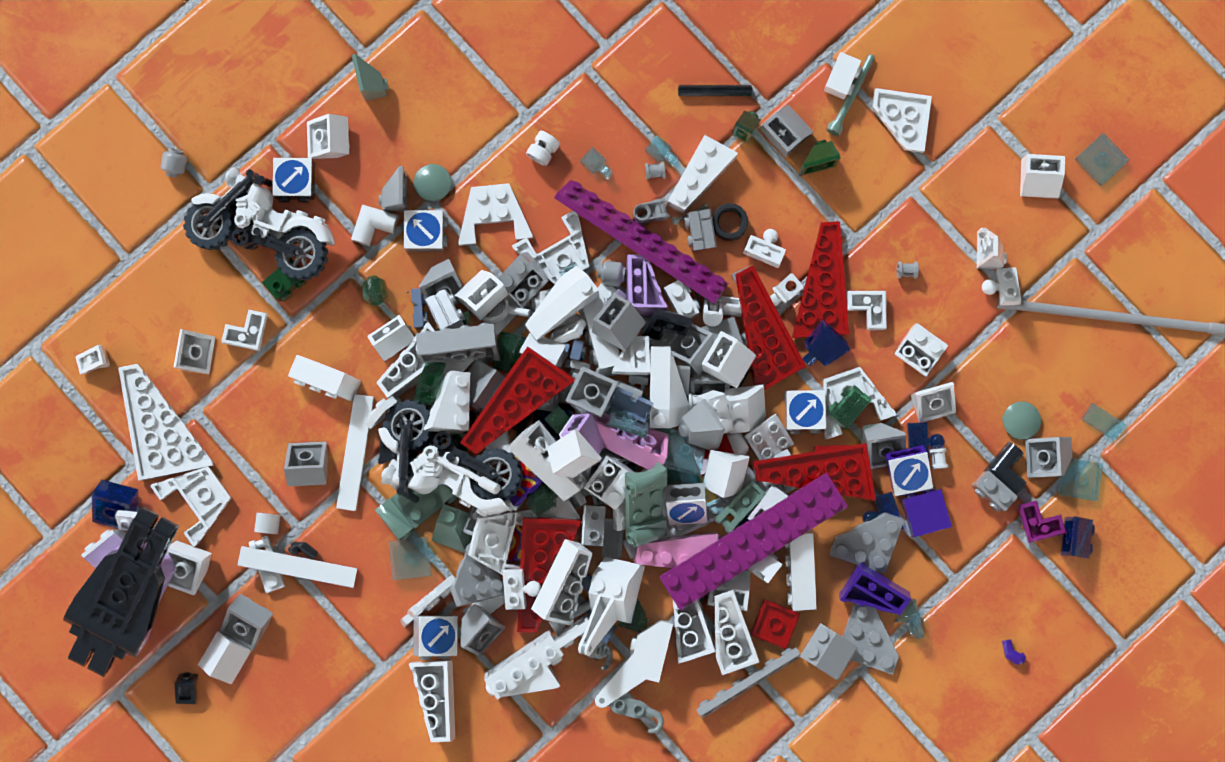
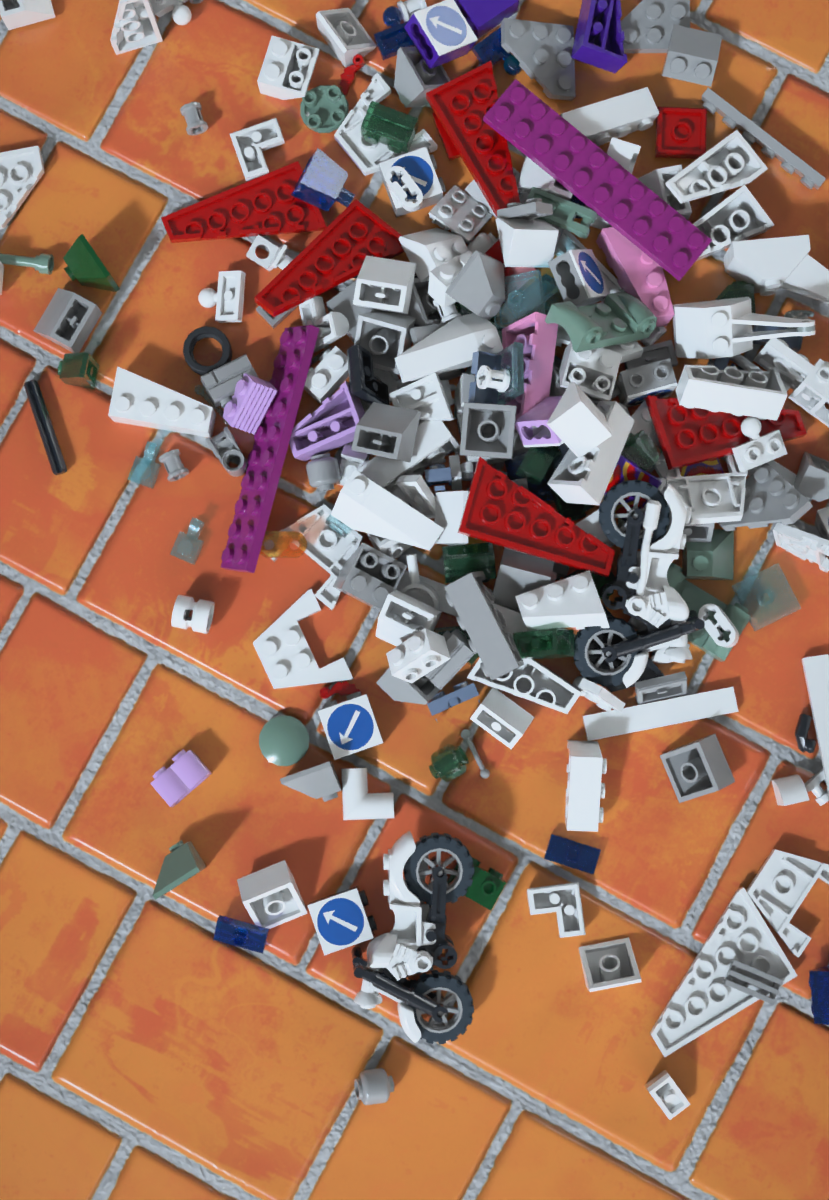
camera: 105 degrees left, 0 degrees up
(138, 443) = (773, 990): none -> light grey tile
(280, 354) = (572, 854): none -> clear blue plate
(310, 108) = (241, 934): none -> clear blue plate
(372, 458) = (661, 688): none -> light grey tile
(390, 310) = (466, 734): none -> light grey hinge
(400, 513) = (714, 629): none -> white beam
(432, 103) = (180, 778): none -> lavender brick
(452, 290) = (418, 655): none -> white brick
(454, 235) = (339, 688): none -> red piece
(569, 226) = (282, 543): none -> clear orange plate
(627, 408) = (483, 383): none -> white bush
(678, 237) = (249, 403): none -> lavender brick
(745, 482) = (532, 209): none -> light grey plate
(799, 405) = (408, 185): none -> white beam
(883, 367) = (324, 108): none -> sand green dish
(903, 394) = (349, 73): none -> red piece

